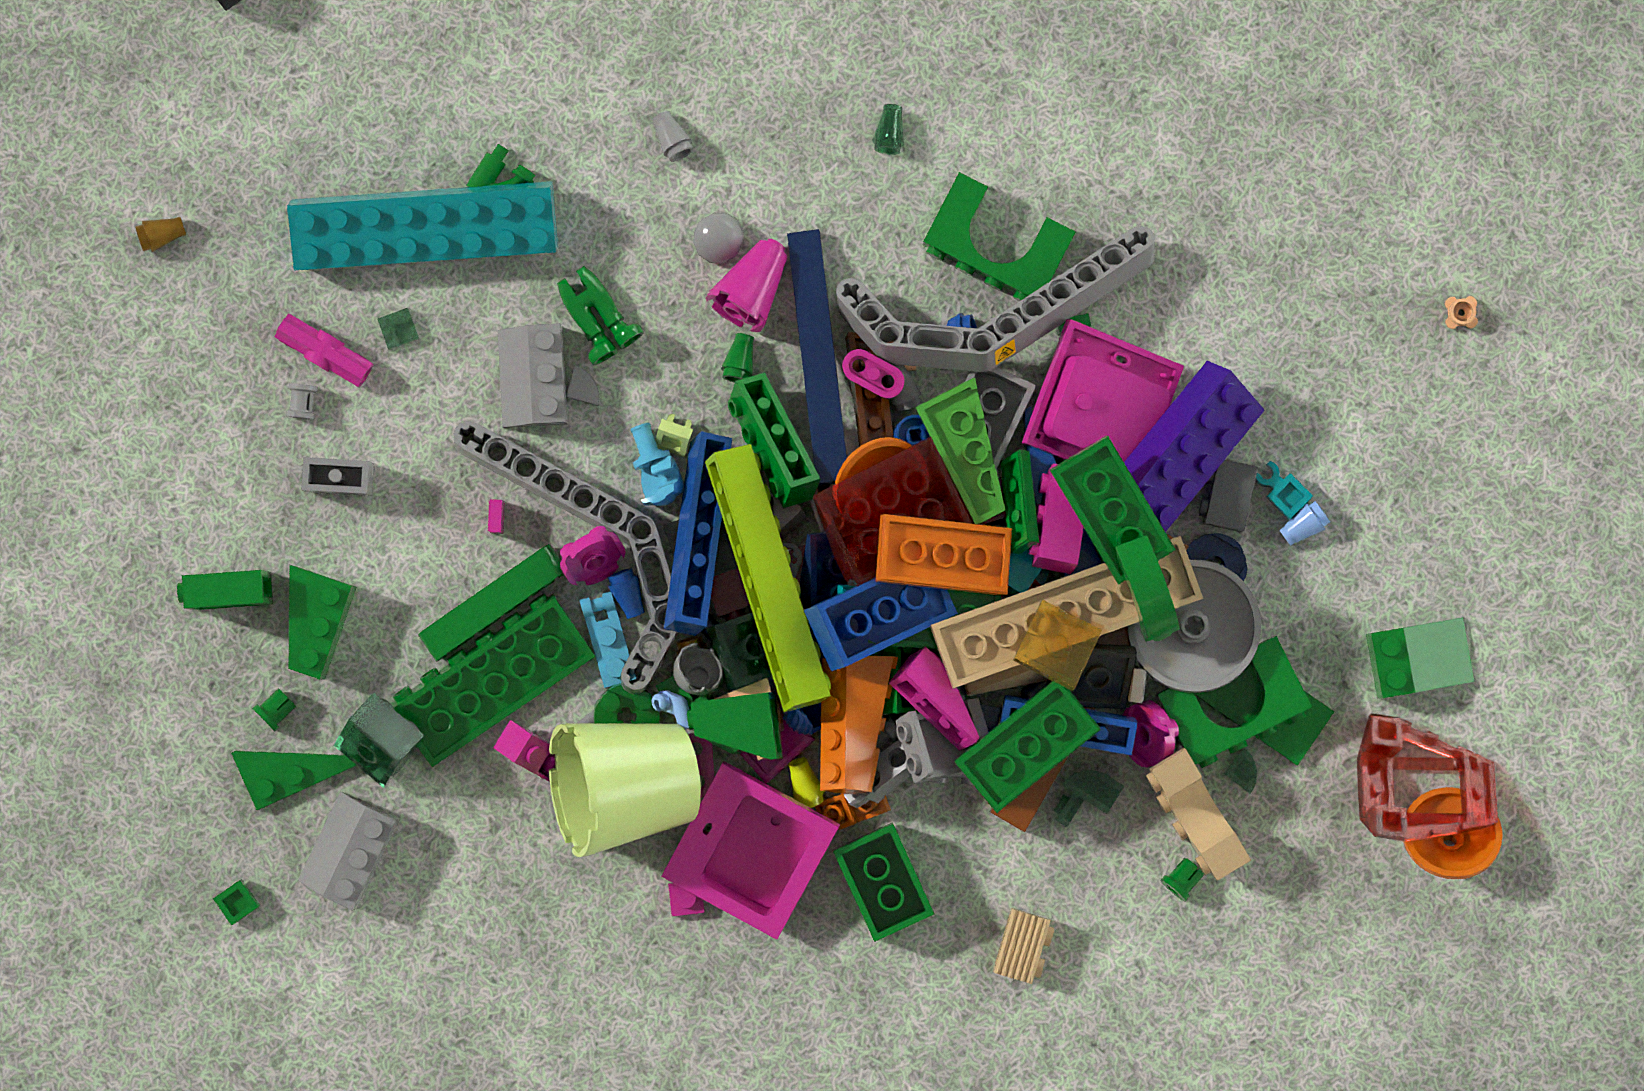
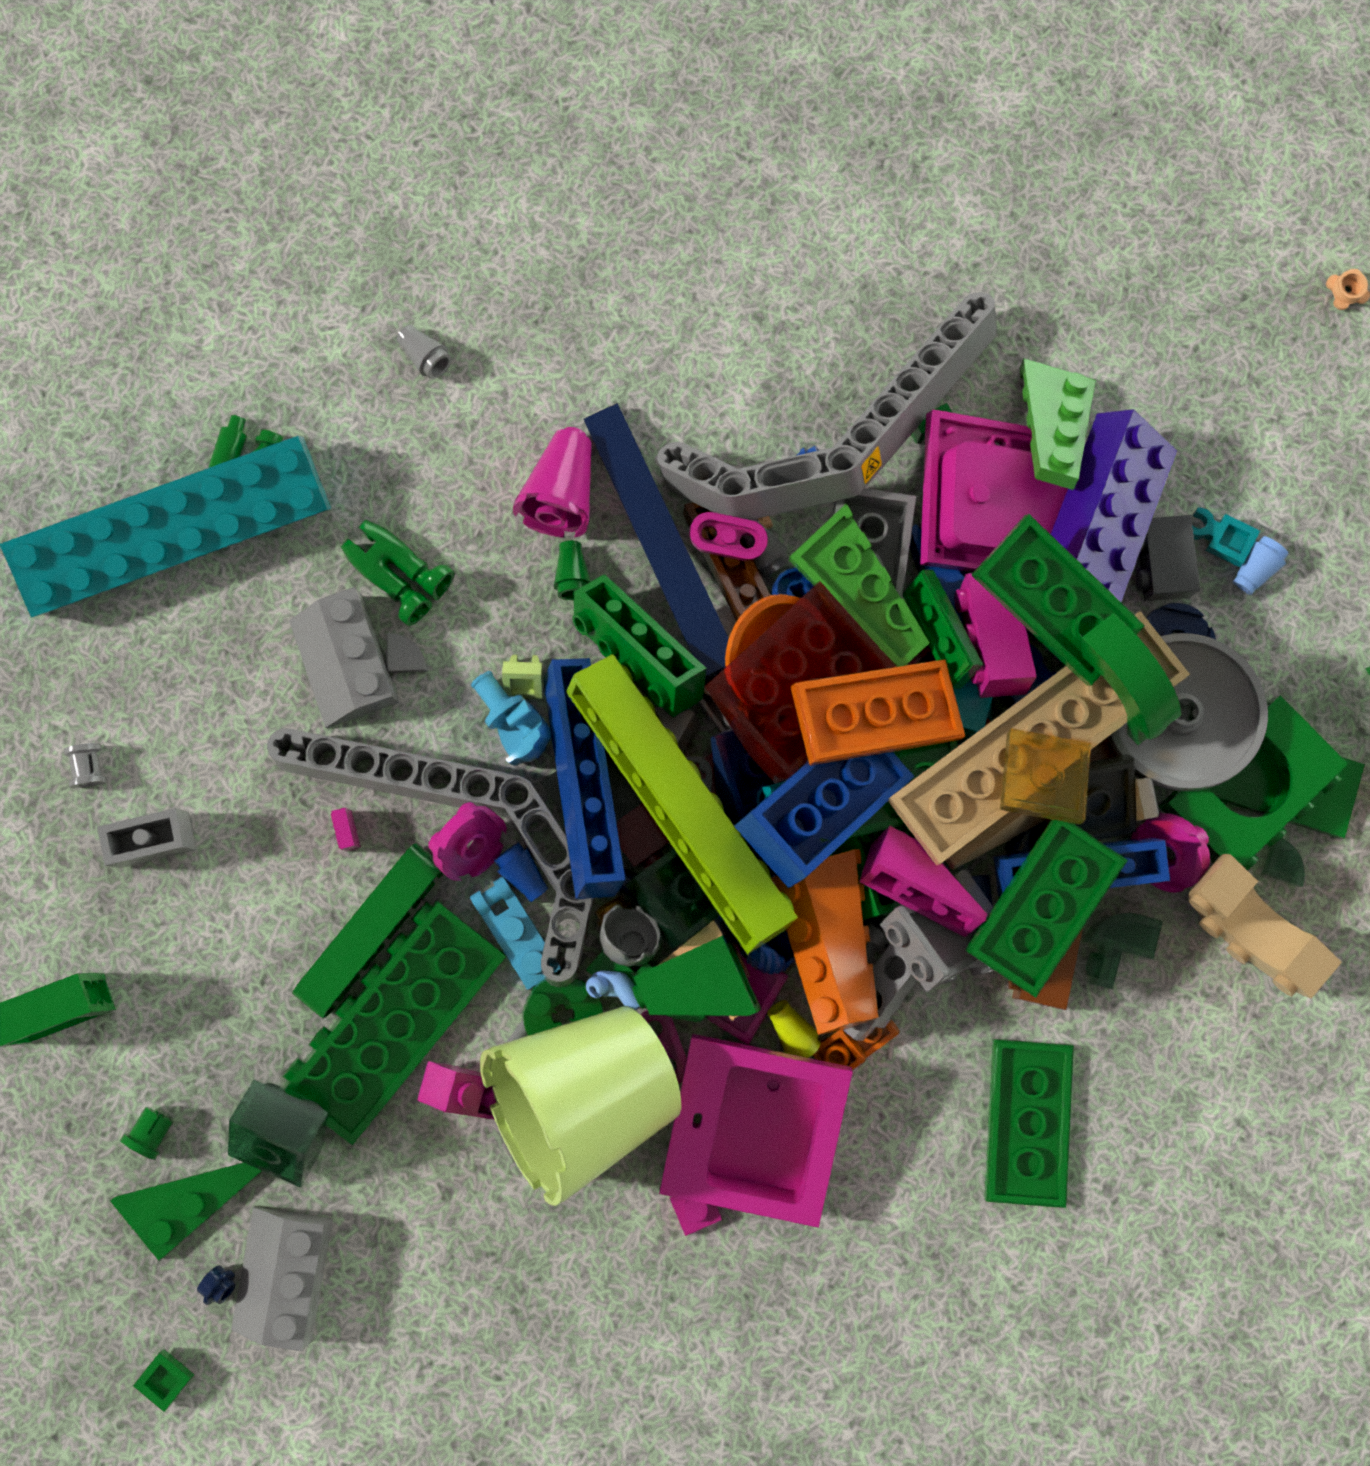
camera: 25 degrees left, 5 degrees down
(297, 843) = (217, 1285): none -> dark blue plate
(315, 620) = (166, 1014): green wedge -> none
(324, 350) = (94, 700): dark pink piece -> none
(398, 328) = (175, 652): clear green tile -> none
(718, 237) = (508, 446): light grey hair -> none
(883, 882) = (921, 1119): green brick -> none
(889, 132) = (663, 277): clear green cone -> none
(951, 239) = (769, 372): green arch -> none
(970, 912) = (1029, 1123): none -> green tile
(1023, 945) = (1104, 1144): tan brick -> none
(1176, 351) = (1058, 420): none -> bright green wing
(1183, 879) = (1260, 1008): green bush -> none

